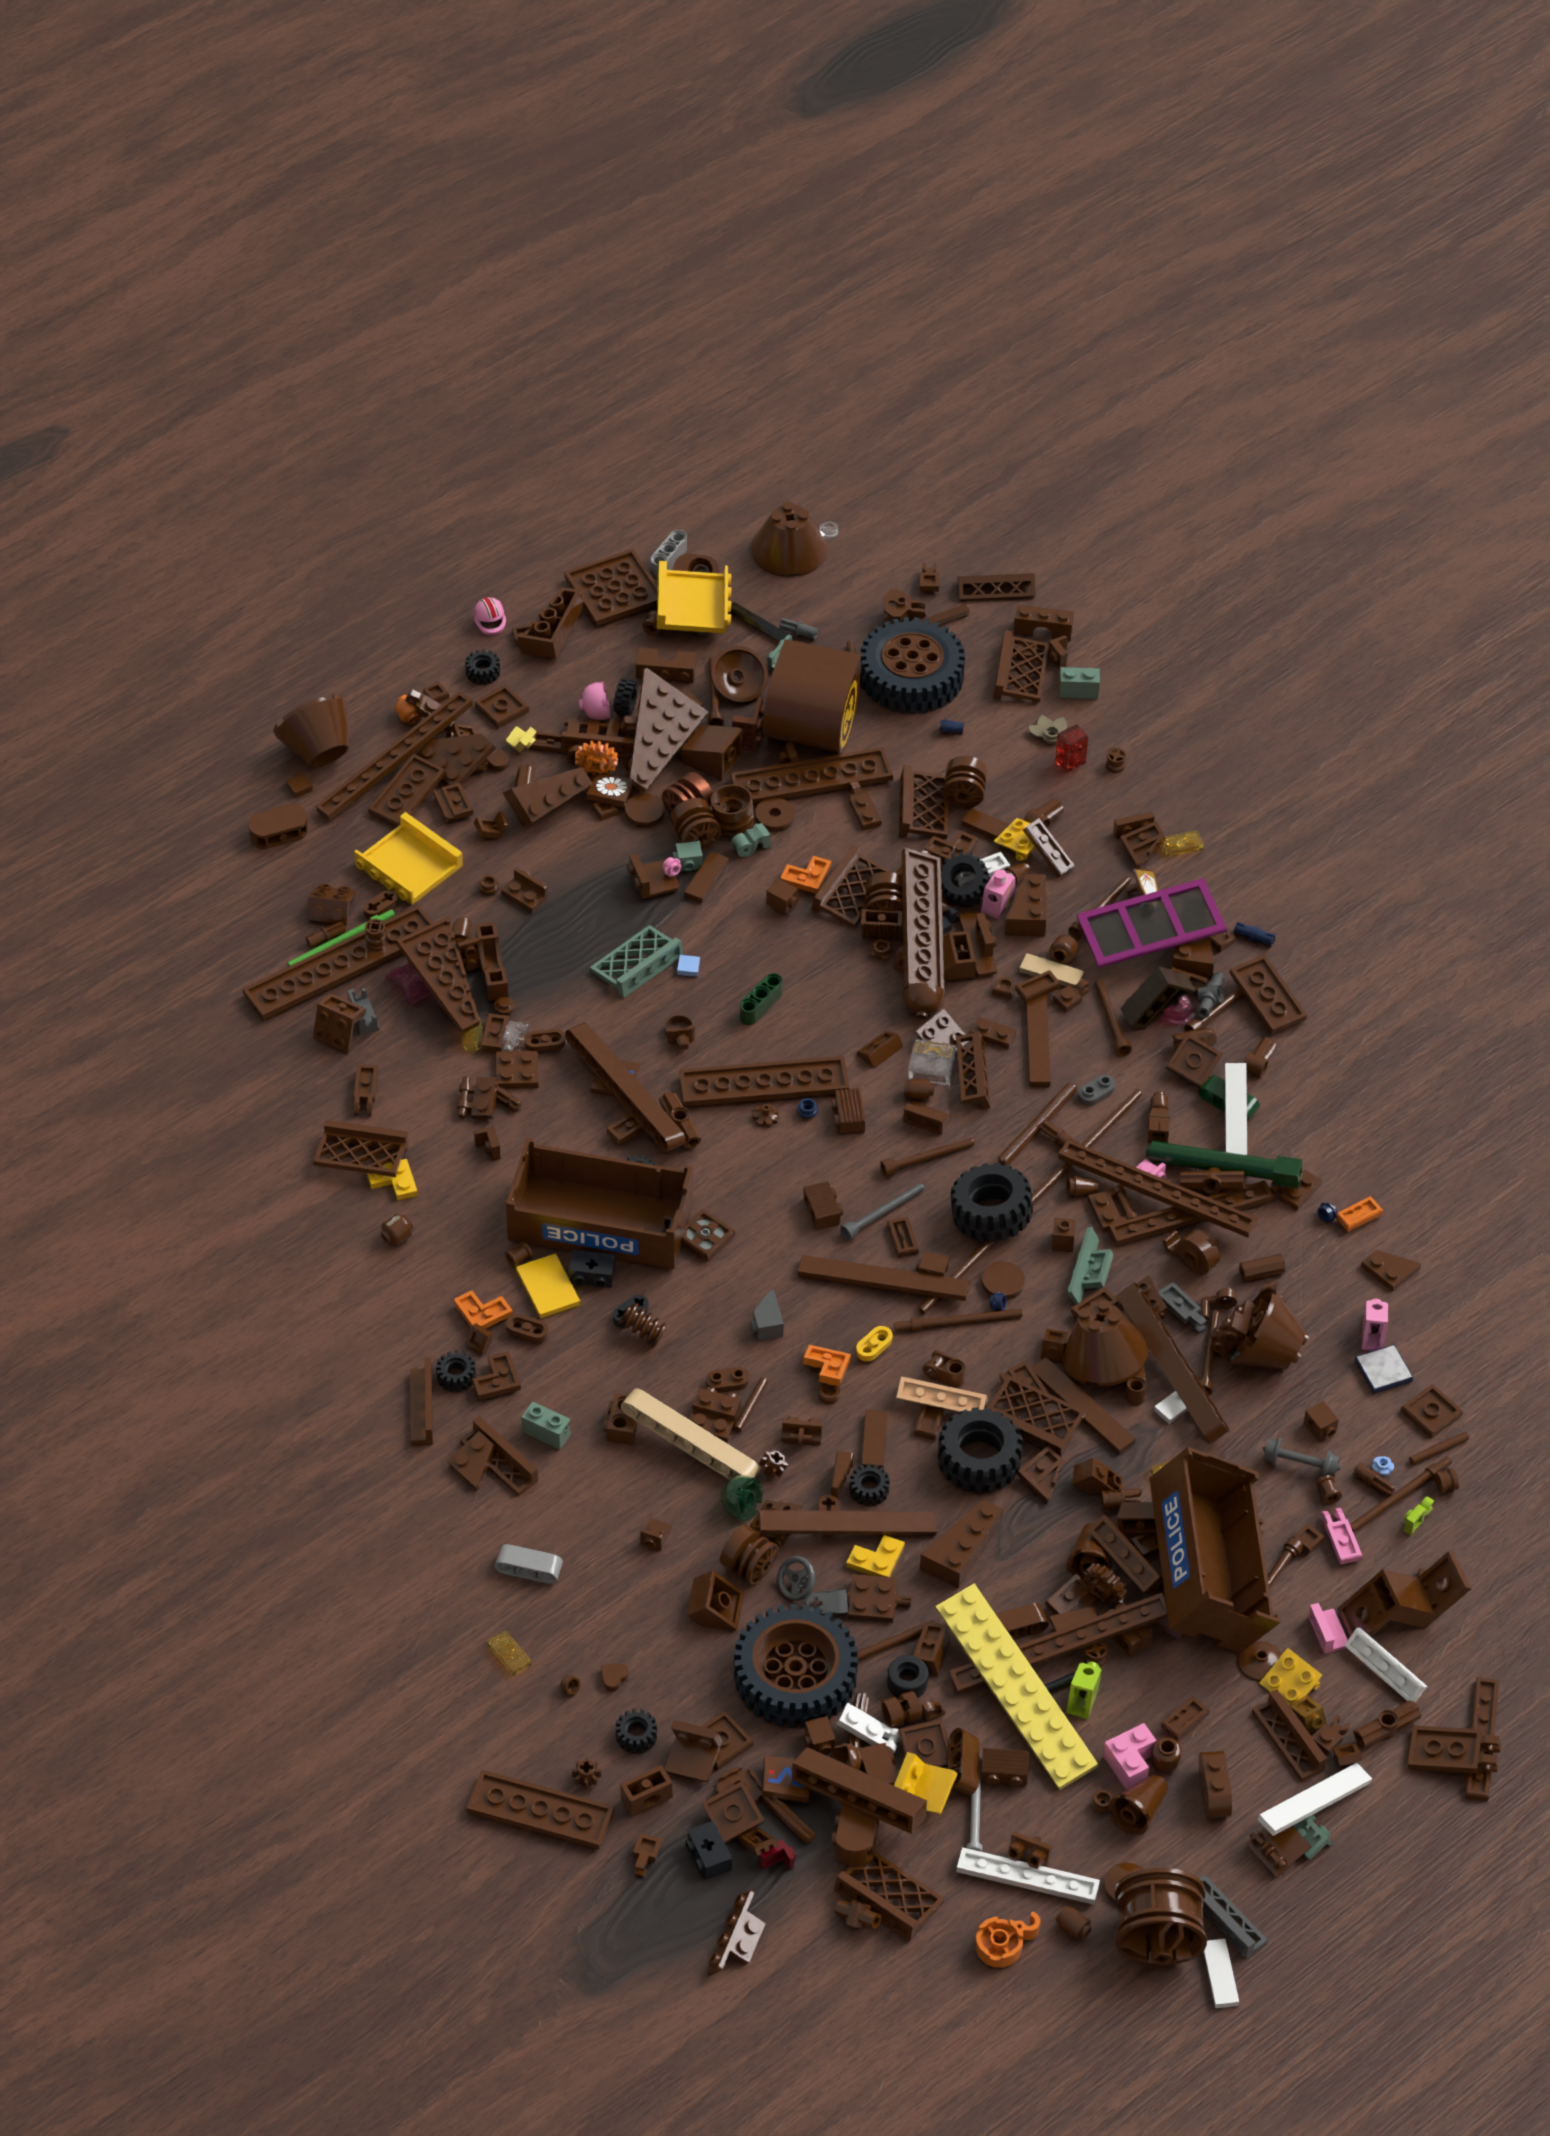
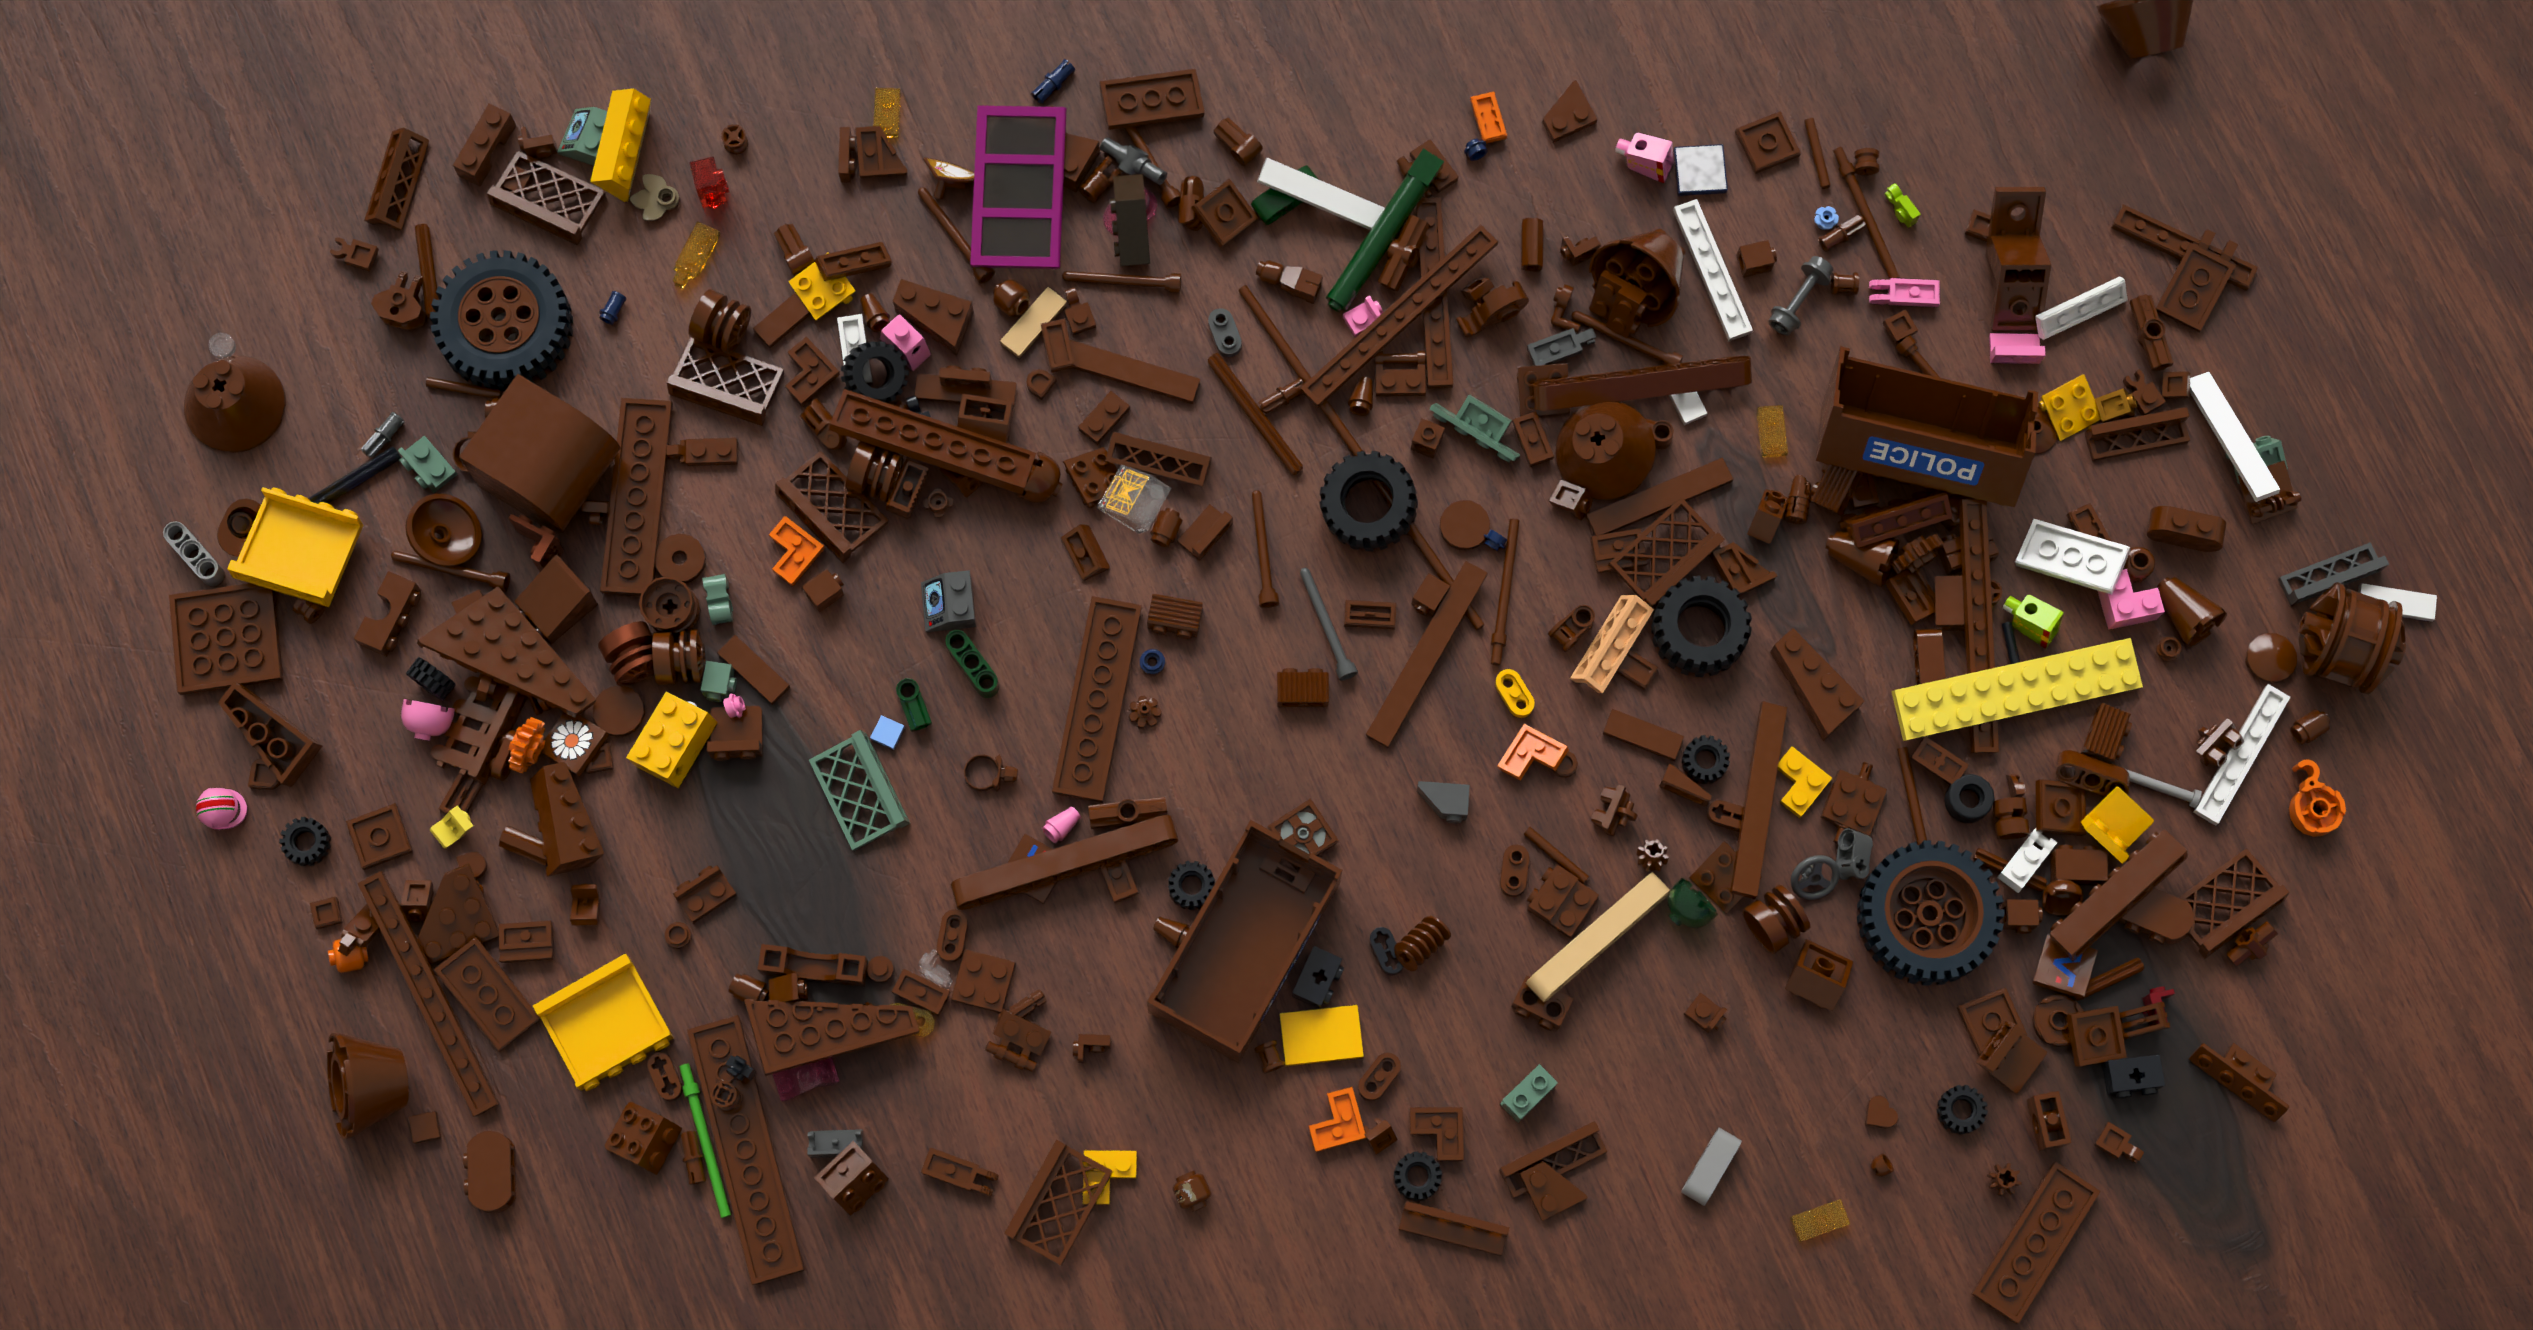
camera: 75 degrees left, 25 degrees up
(398, 931) = (739, 1068): none -> black plate
(632, 835) = (672, 739): none -> yellow piece
(655, 1083) = (1061, 824): none -> bright pink cone
(719, 970) = (913, 706): none -> dark green piece
(806, 976) = (948, 602): none -> dark grey slope
(1014, 762) = (695, 254): none -> clear yellow hinge
(1078, 693) = (621, 142): none -> yellow slope
(1152, 1702) = (2072, 556): none -> white tile
(1297, 1395) = (1712, 270): none -> white plate

